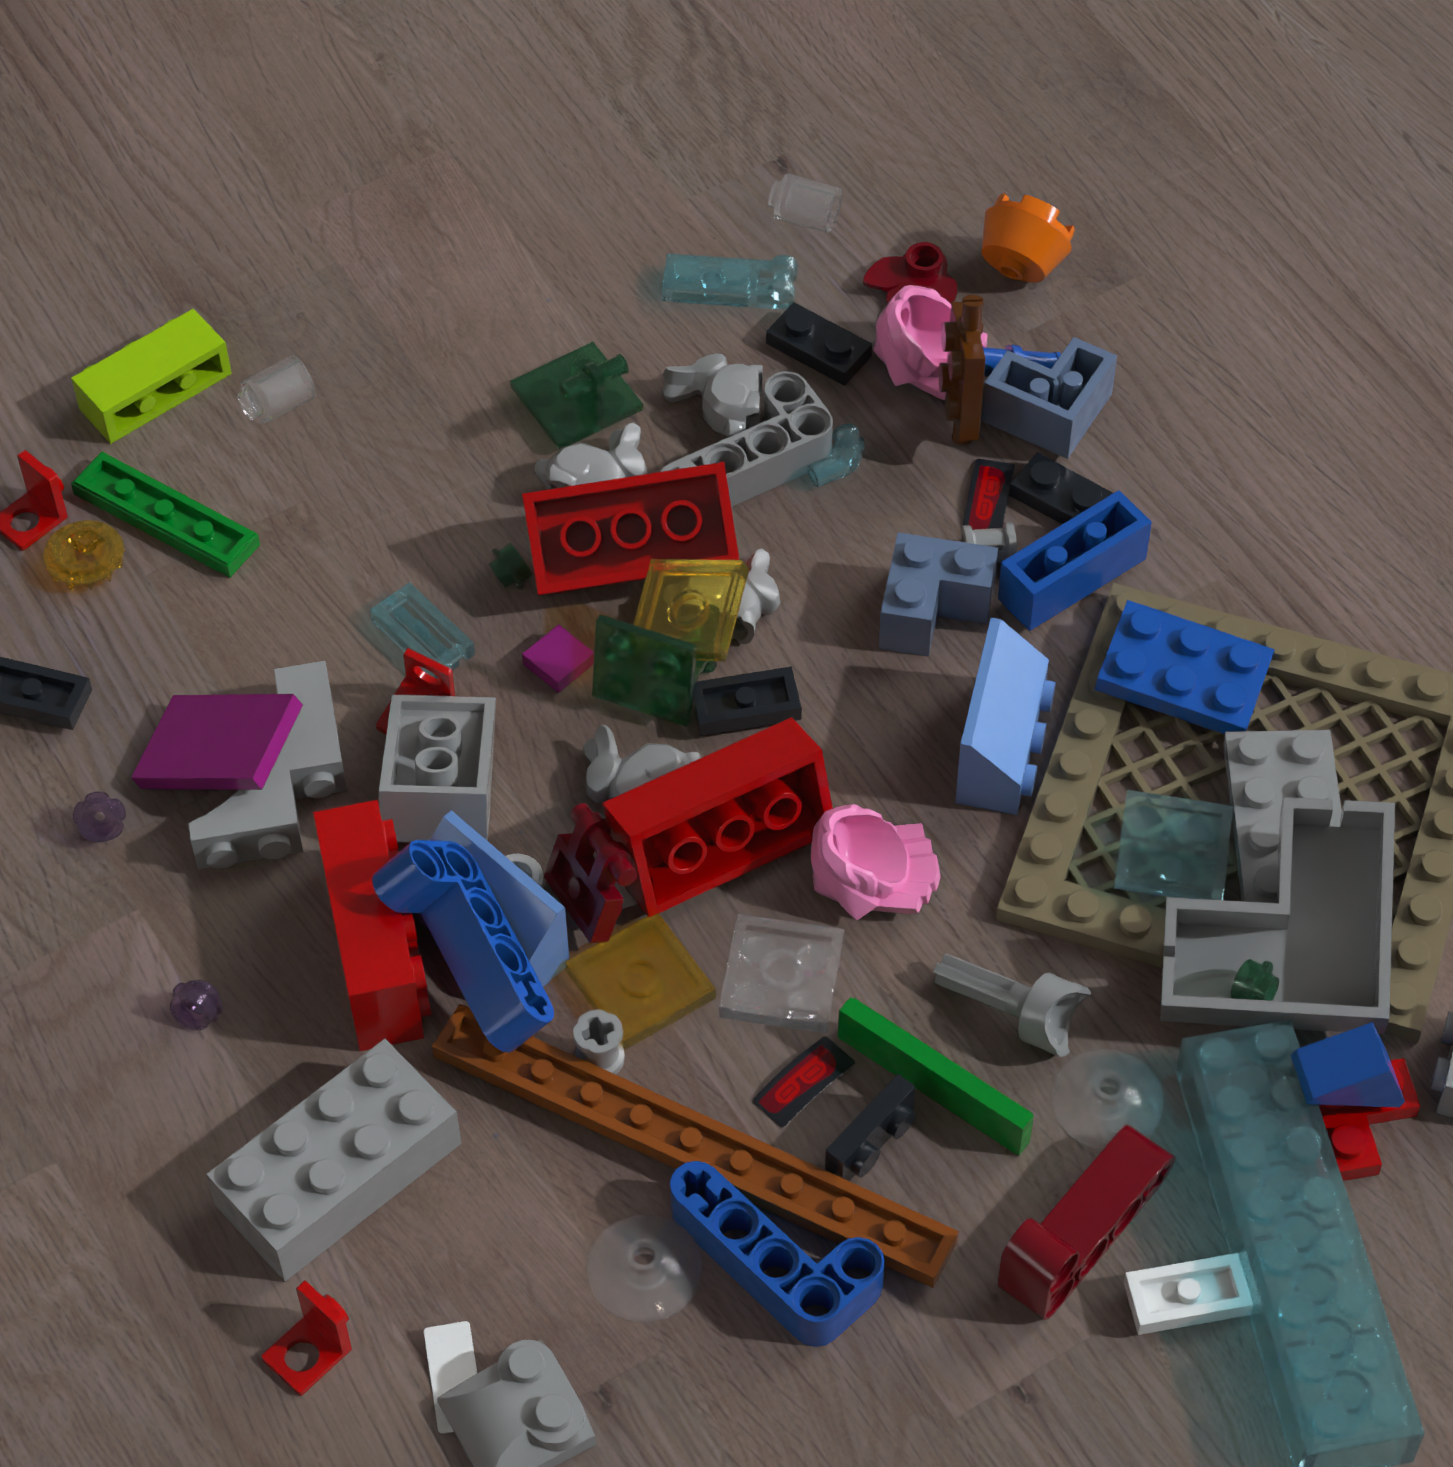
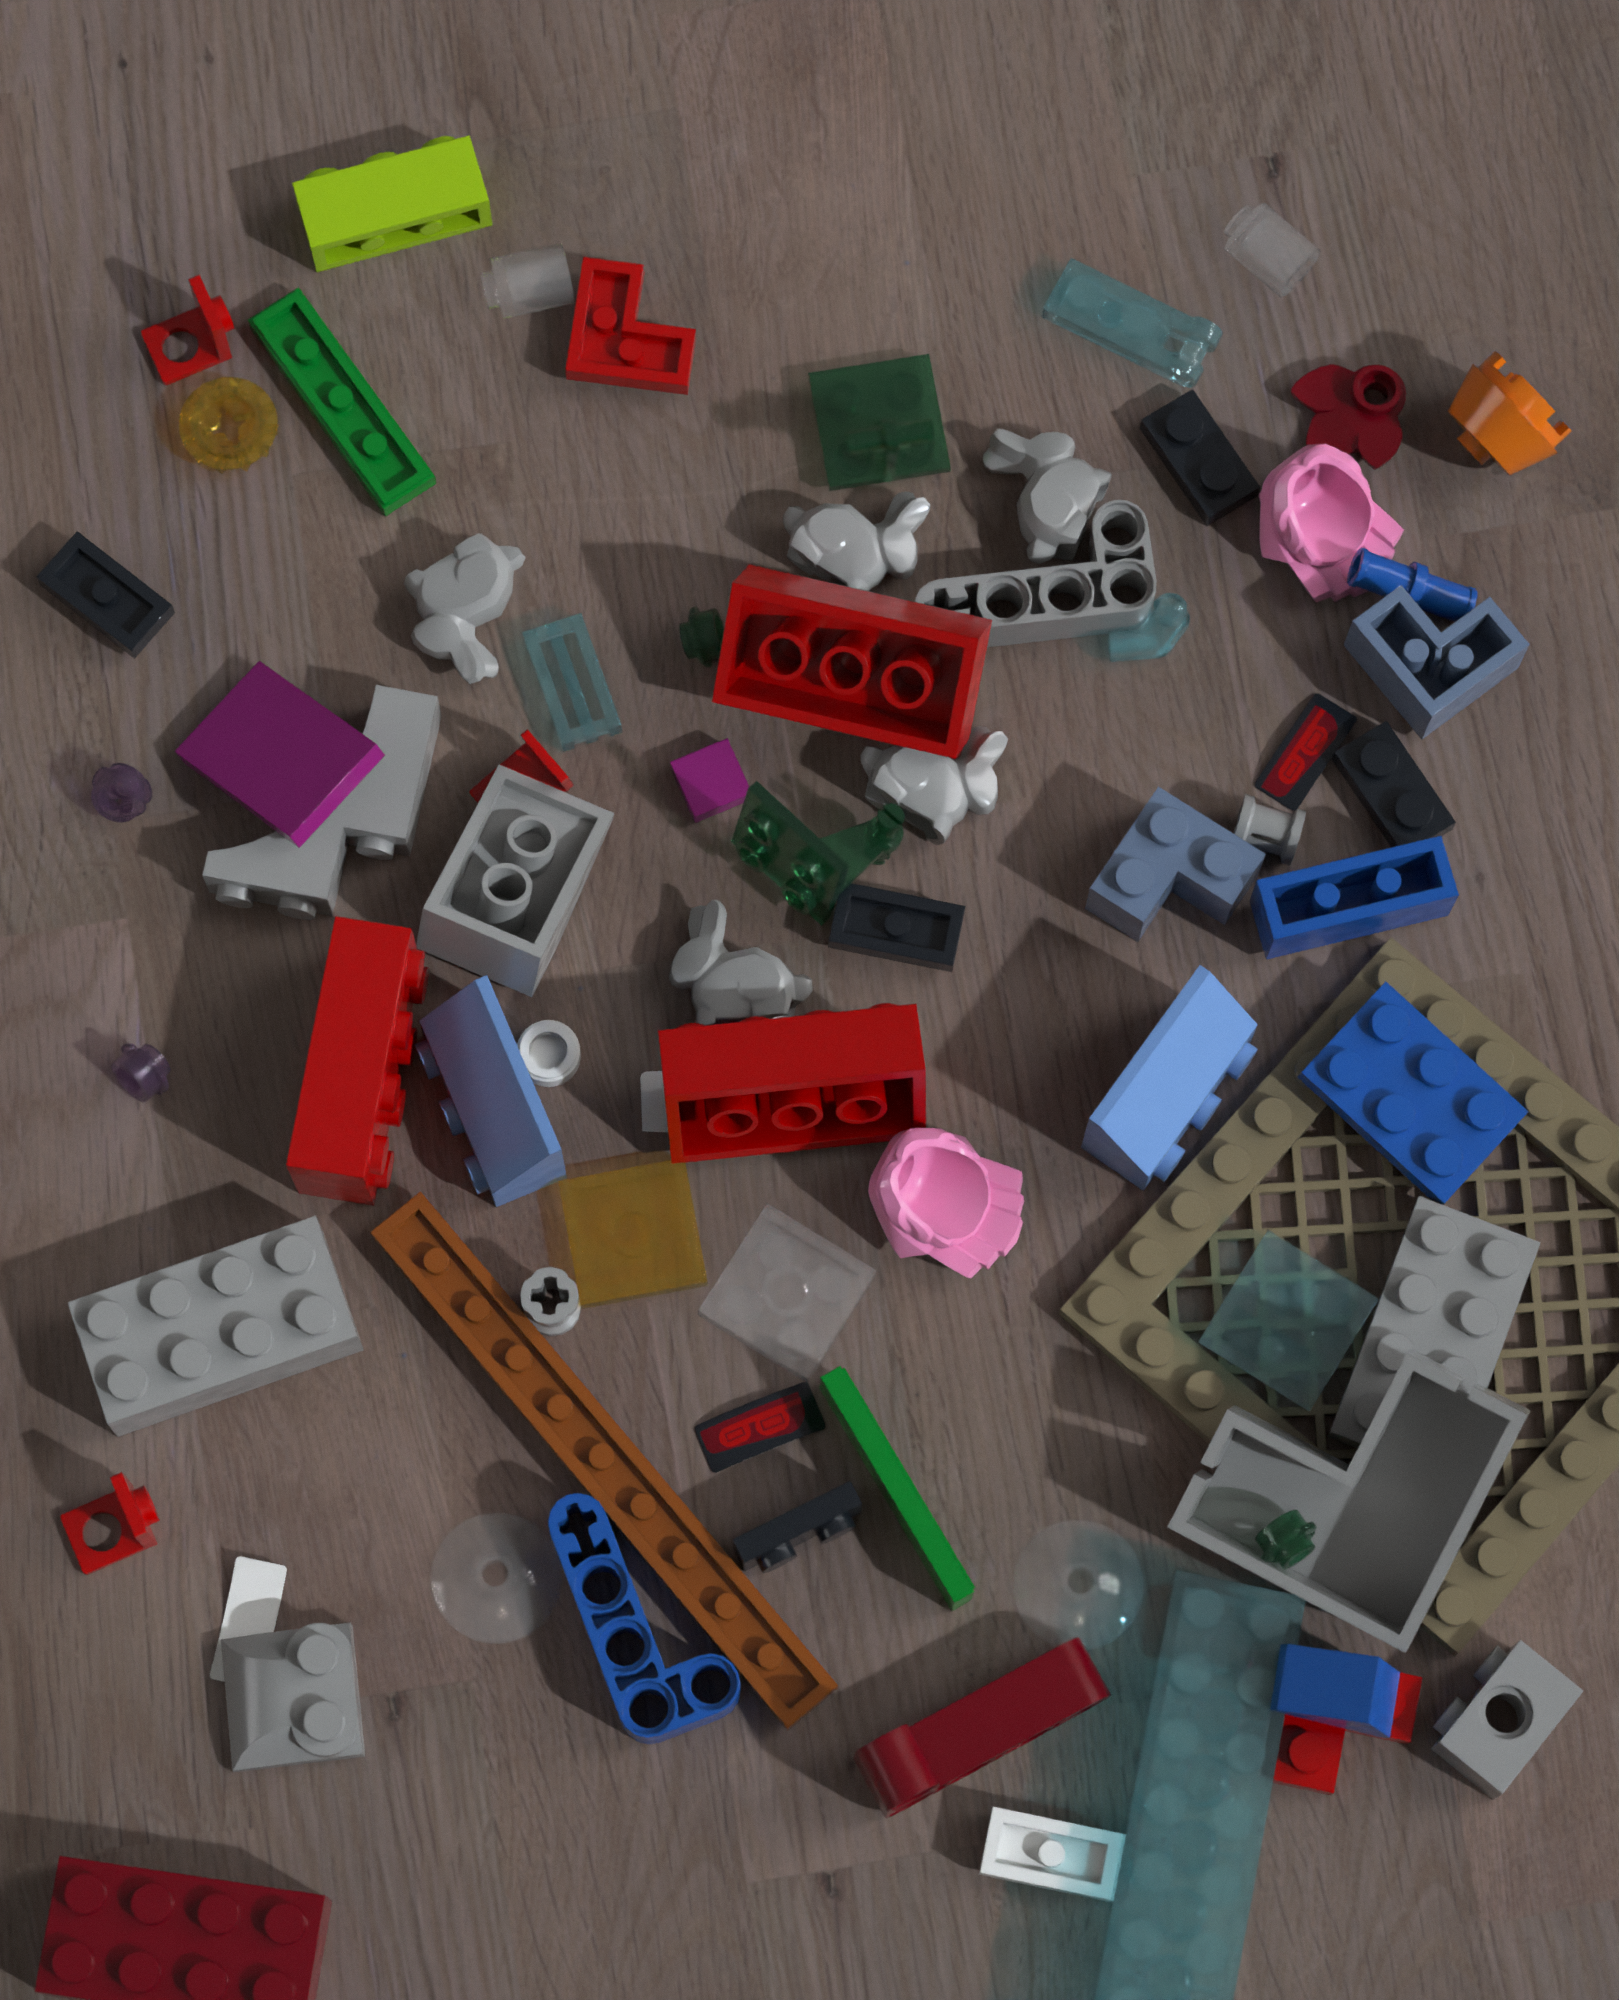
camera: 20 degrees right, 20 degrees up
(312, 602) = (458, 597): none -> light grey animal
(361, 411) = (610, 342): none -> red plate
(472, 935) = (451, 1136): blue beam -> none
(586, 882) = (621, 1095): dark red plate -> none
(694, 602) = (868, 803): clear yellow tile -> none
(965, 367) = (1328, 598): reddish brown plate -> none
(1042, 1010) = (1048, 1461): light grey piece -> none

